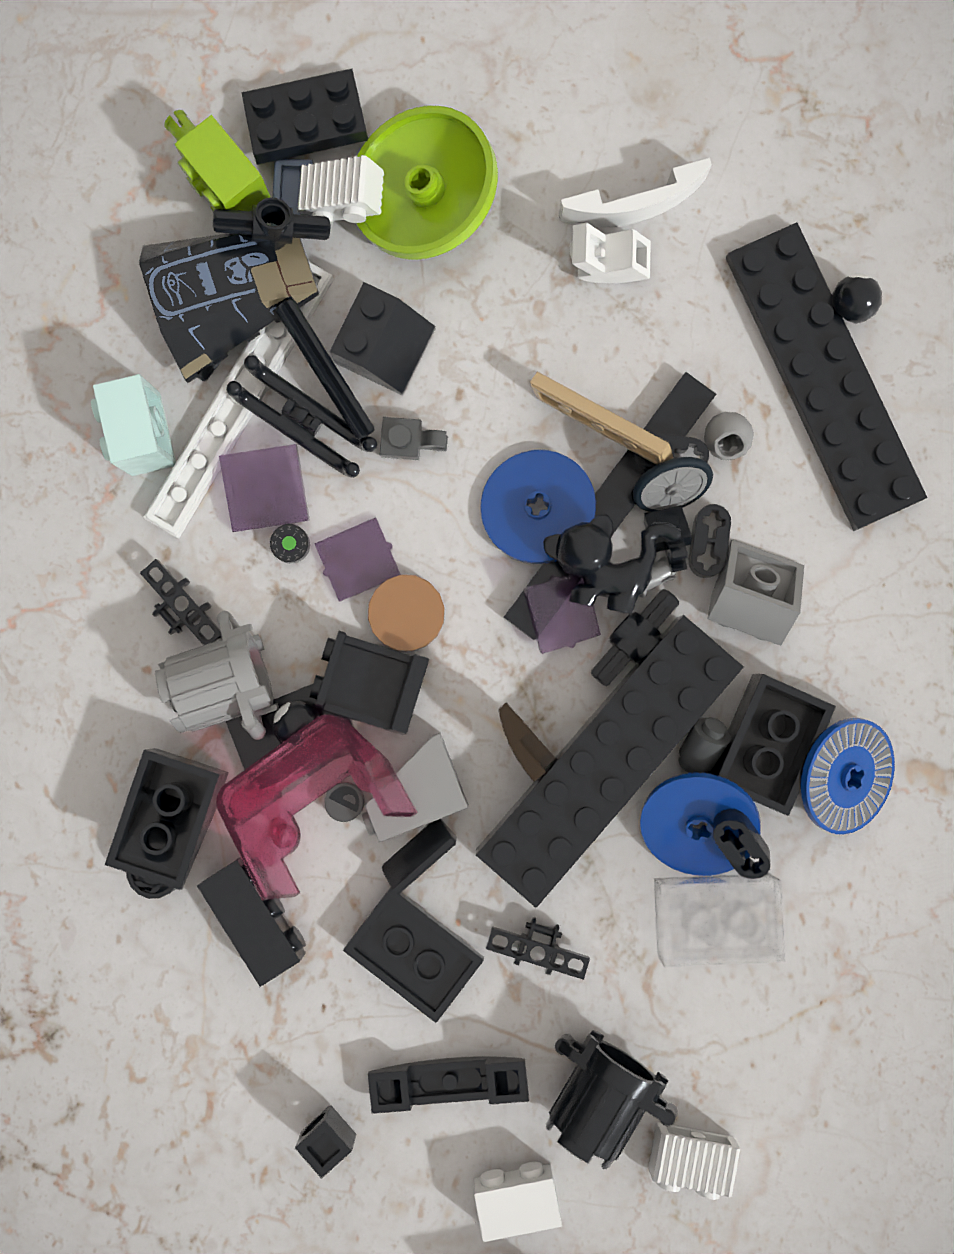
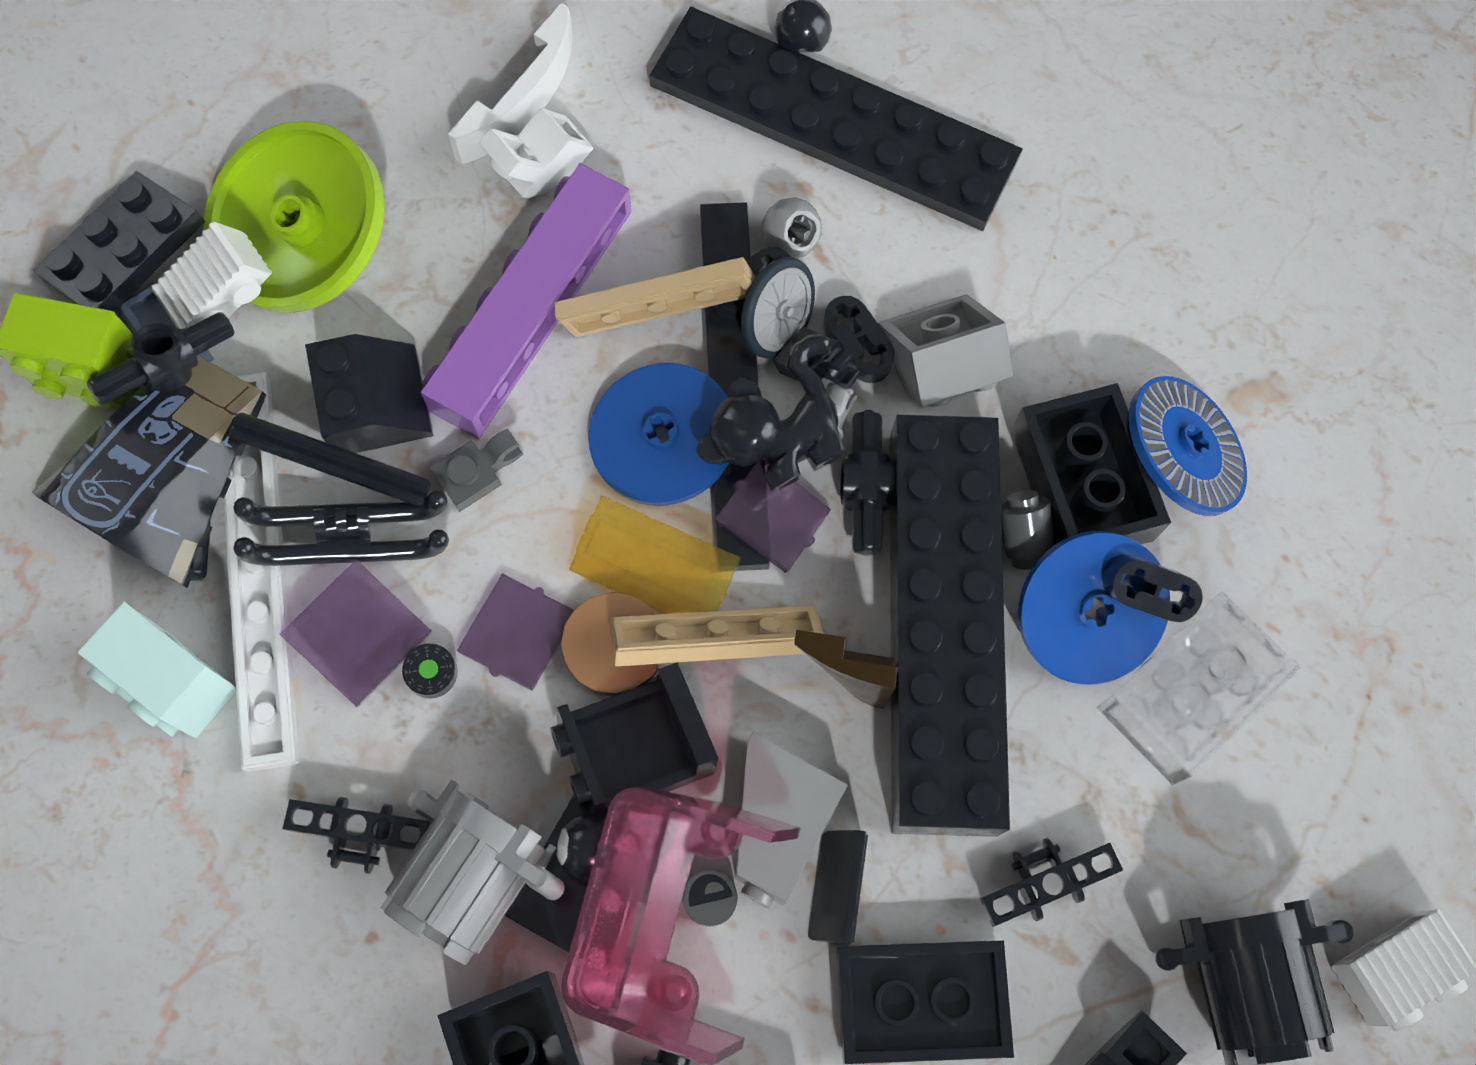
camera: 45 degrees left, 15 degrees down
(466, 658) = (710, 635): none -> tan tile
(468, 584) = (652, 560): none -> clear yellow piece
(516, 355) = (520, 309): none -> medium lavender brick

